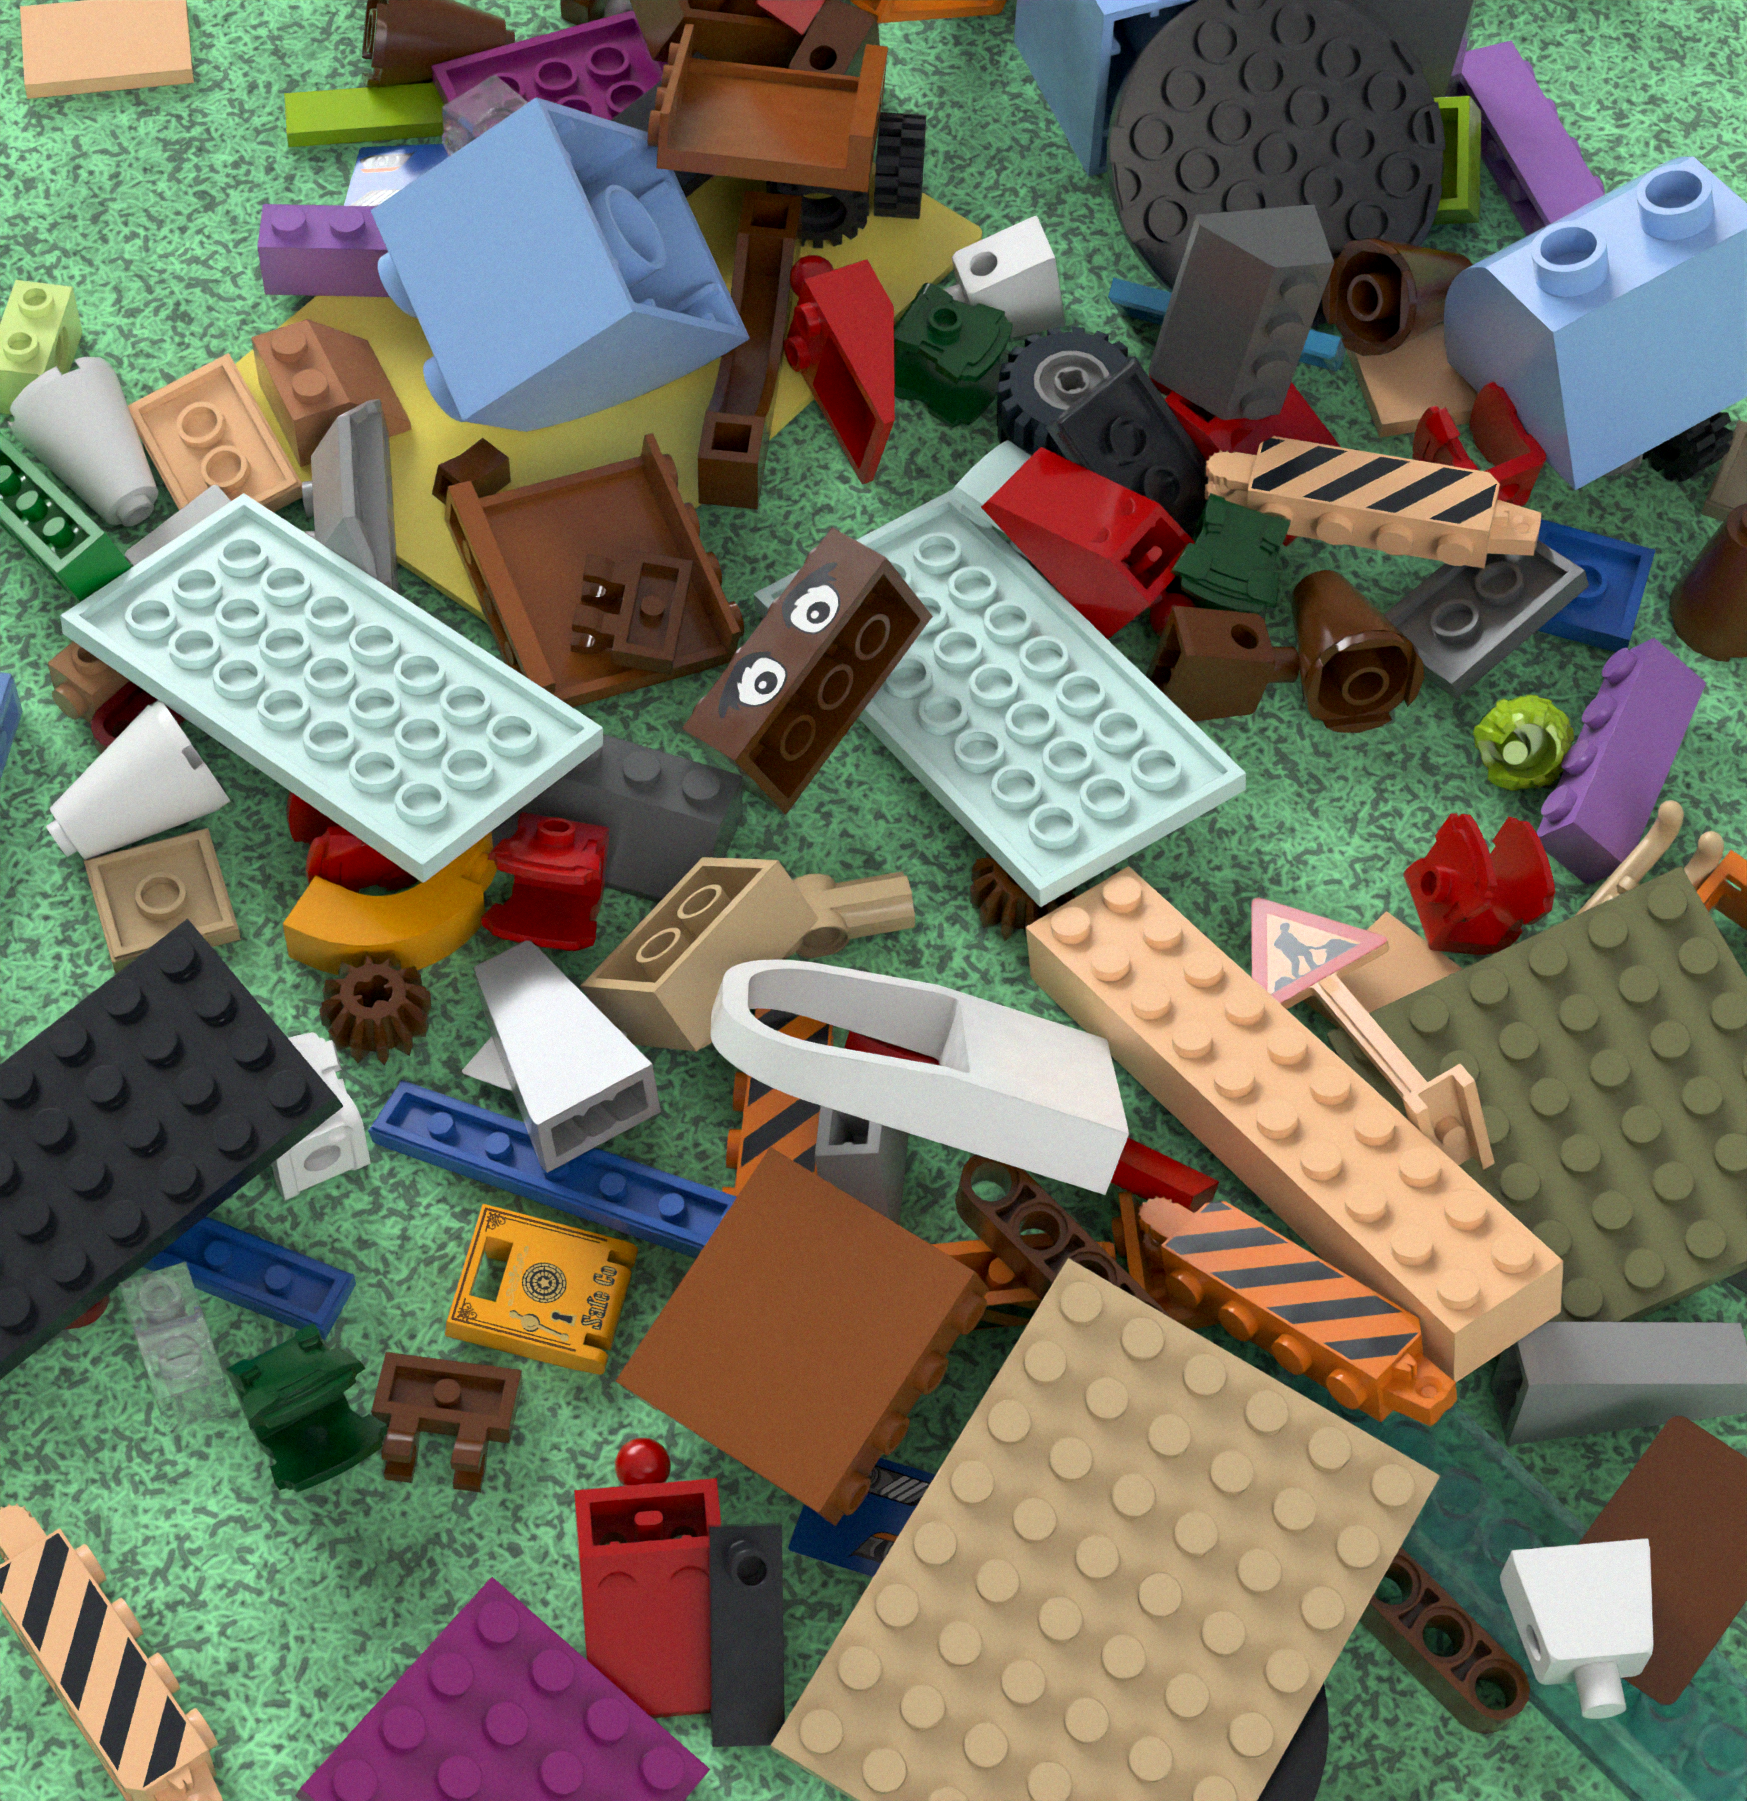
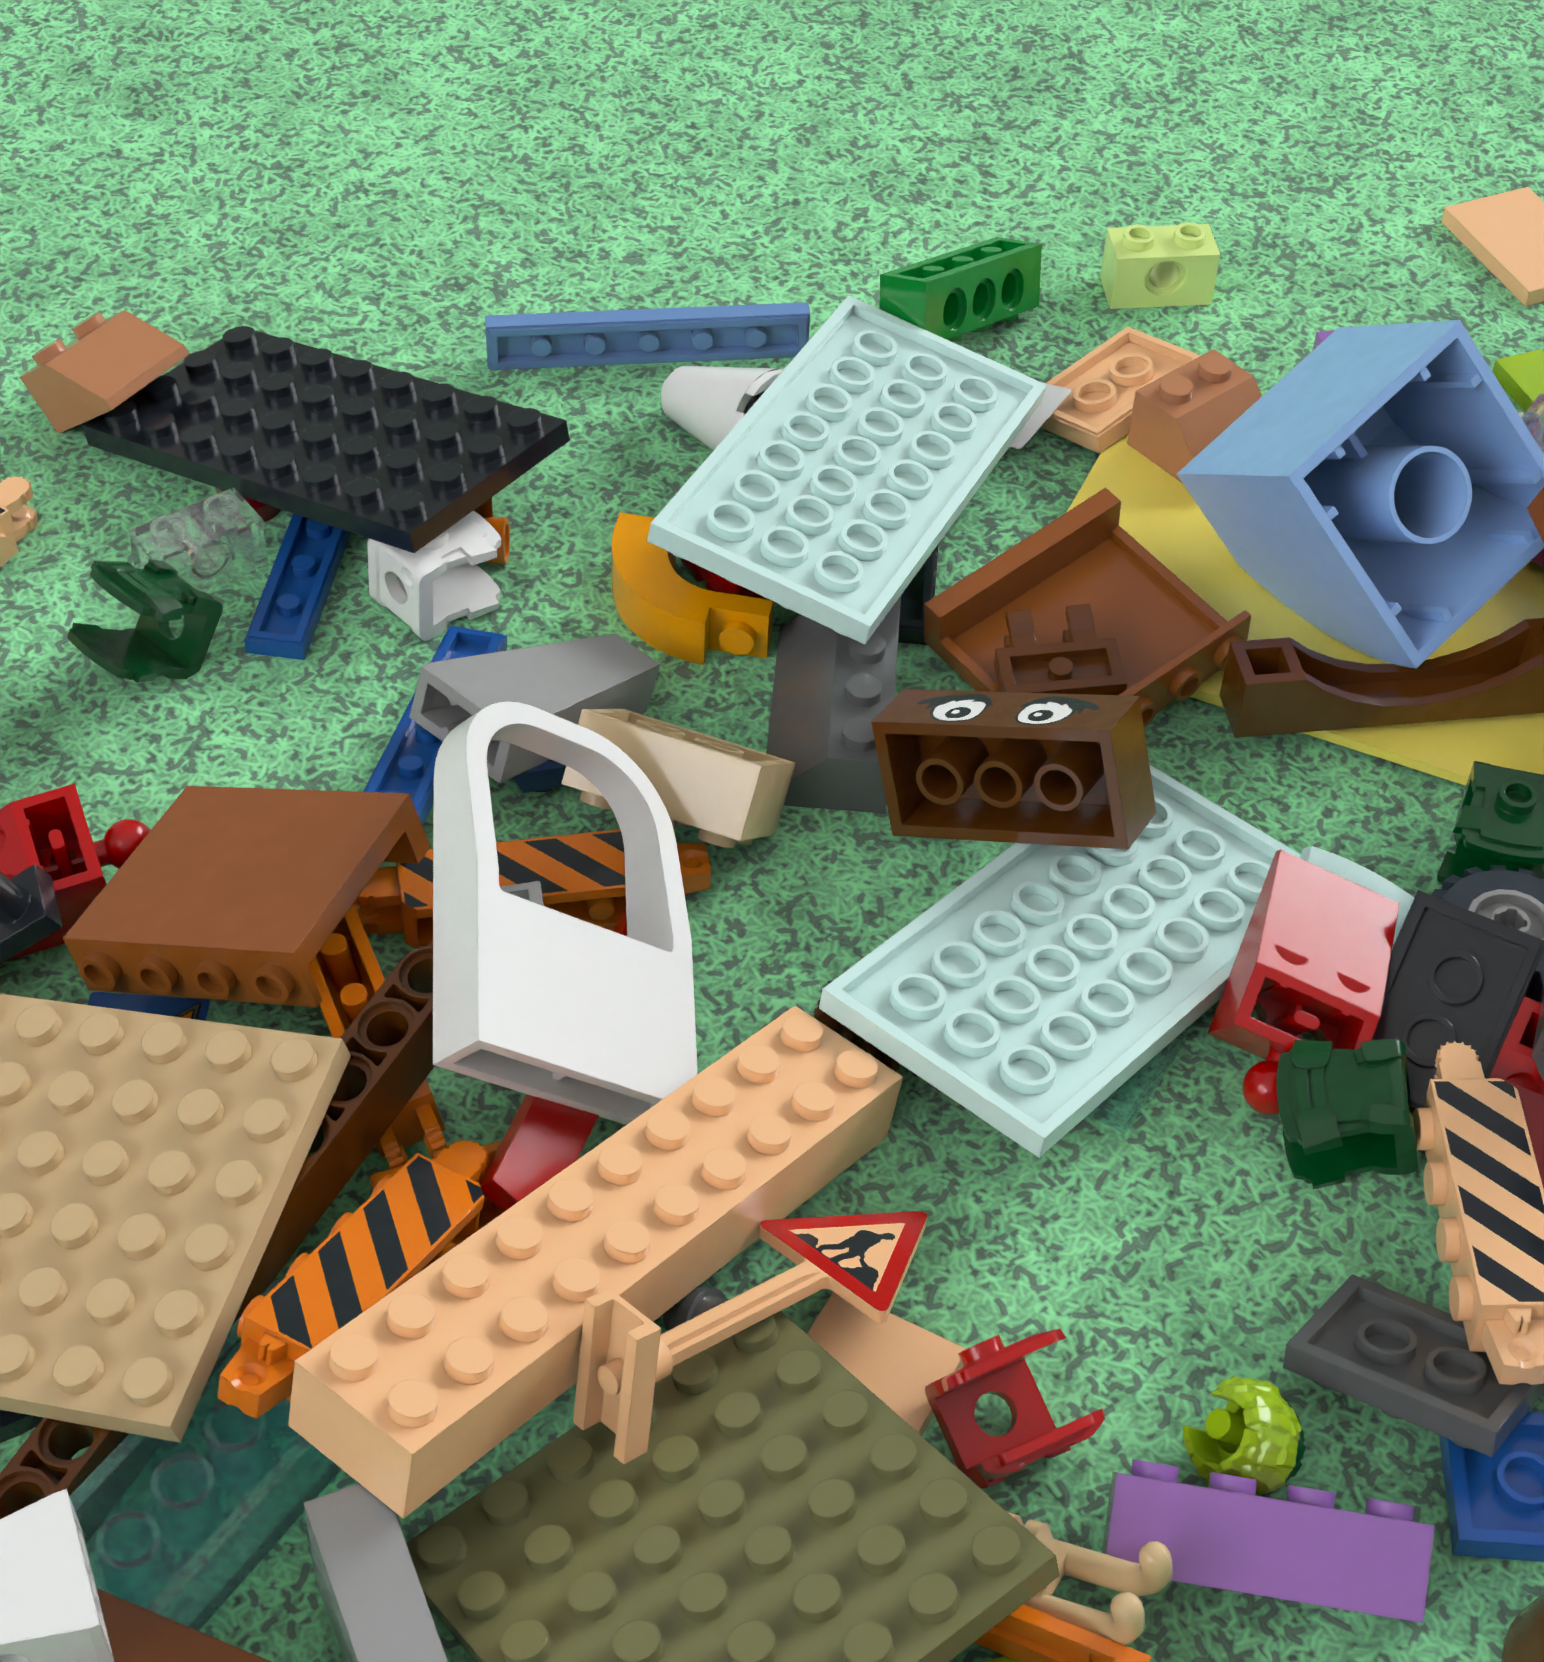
camera: 75 degrees right, 10 degrees down
(87, 439) = (1078, 306): white cone -> none
(156, 888) = (638, 463): tan tile -> none
(354, 493) = (1073, 453): light grey wedge -> none
(375, 1008) = (569, 599): reddish brown gear -> none
(445, 1399) = (189, 732): reddish brown plate -> none
(481, 464) = (1166, 536): reddish brown piece -> none
(554, 1293) = (315, 756): light orange container -> none
(555, 885) = (726, 666): red piece -> none
(846, 354) = (1430, 744): red slope -> none
(853, 910) = (787, 883): tan piece -> none
(1218, 662) = (1213, 1123): reddish brown torso -> none
(1350, 655) = (1288, 1243): reddish brown cone -> none

